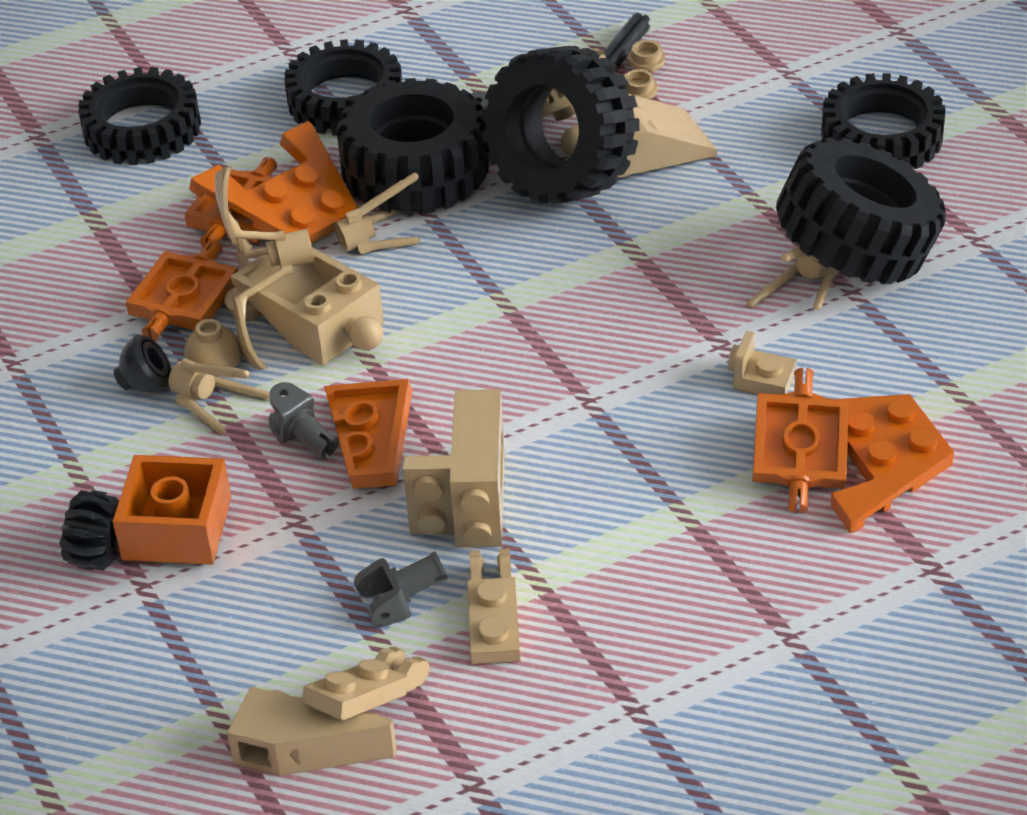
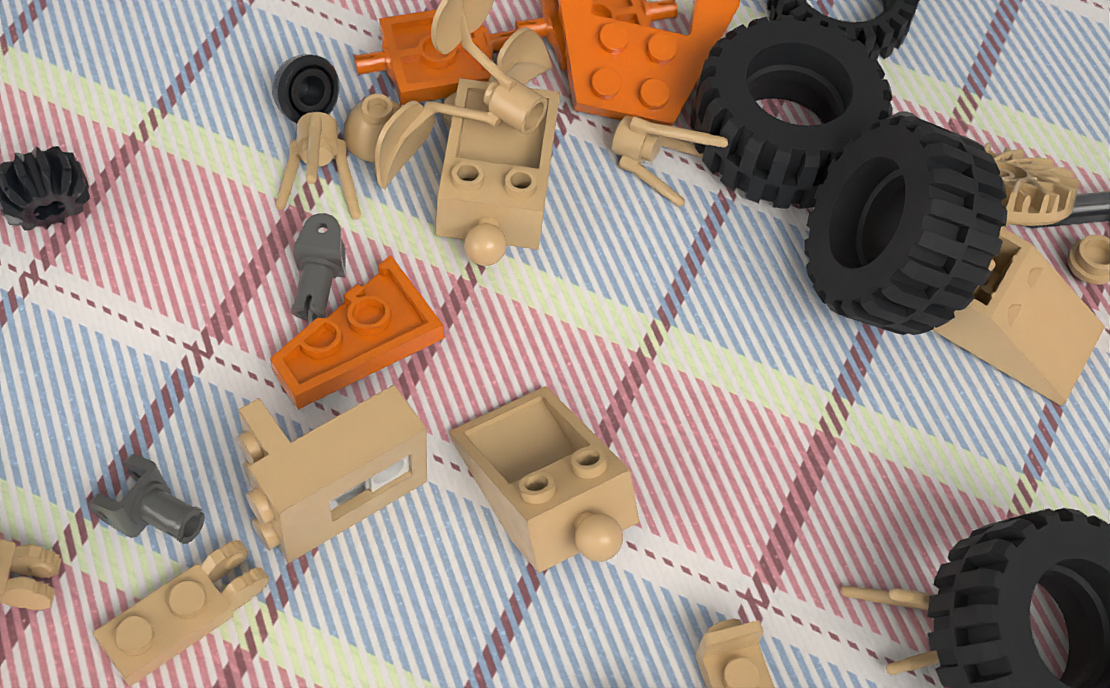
camera: 45 degrees right, 15 degrees up
(172, 509) = (112, 236): orange brick -> none
(569, 384) = (549, 480): none -> tan slope

